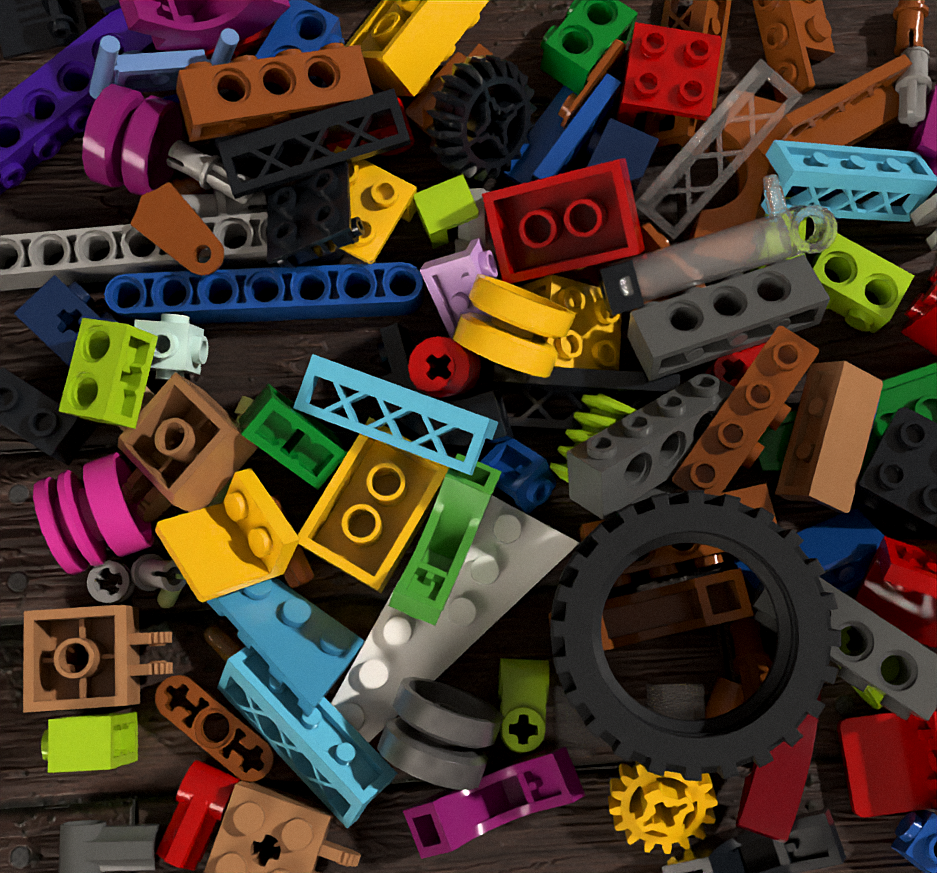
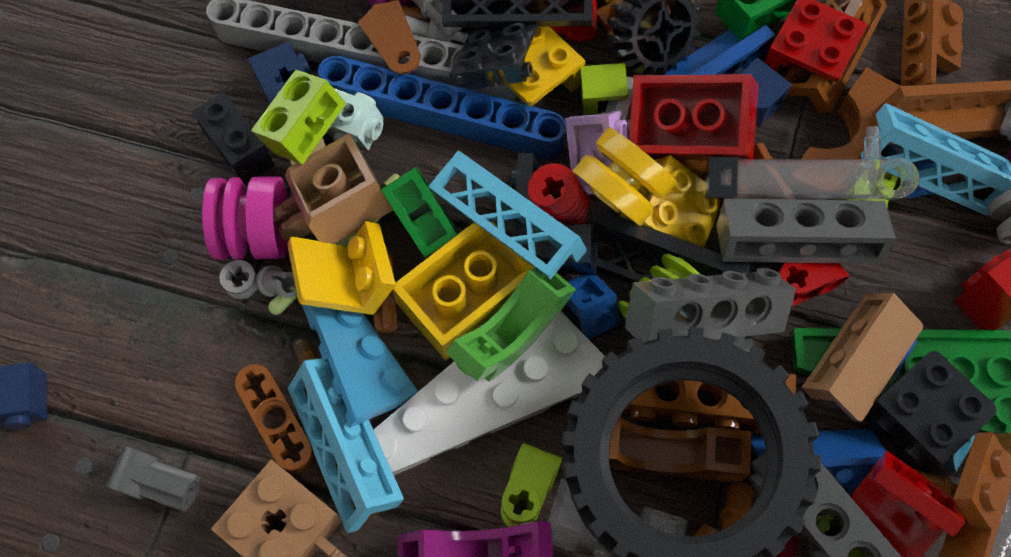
camera: 25 degrees right, 10 degrees down
(90, 742) = (174, 386): lime brick -> none
(113, 671) = (219, 321): medium nougat hinge -> none
(201, 805) = (238, 468): red piece -> none
(440, 733) = (446, 484): flat silver wheel -> none
(605, 65) = (771, 18): dark orange piece -> none
(703, 139) = (830, 95): clear fence -> none
(746, 414) = (802, 307): dark orange bracket -> none
(857, 272) = (928, 239): lime brick -> none

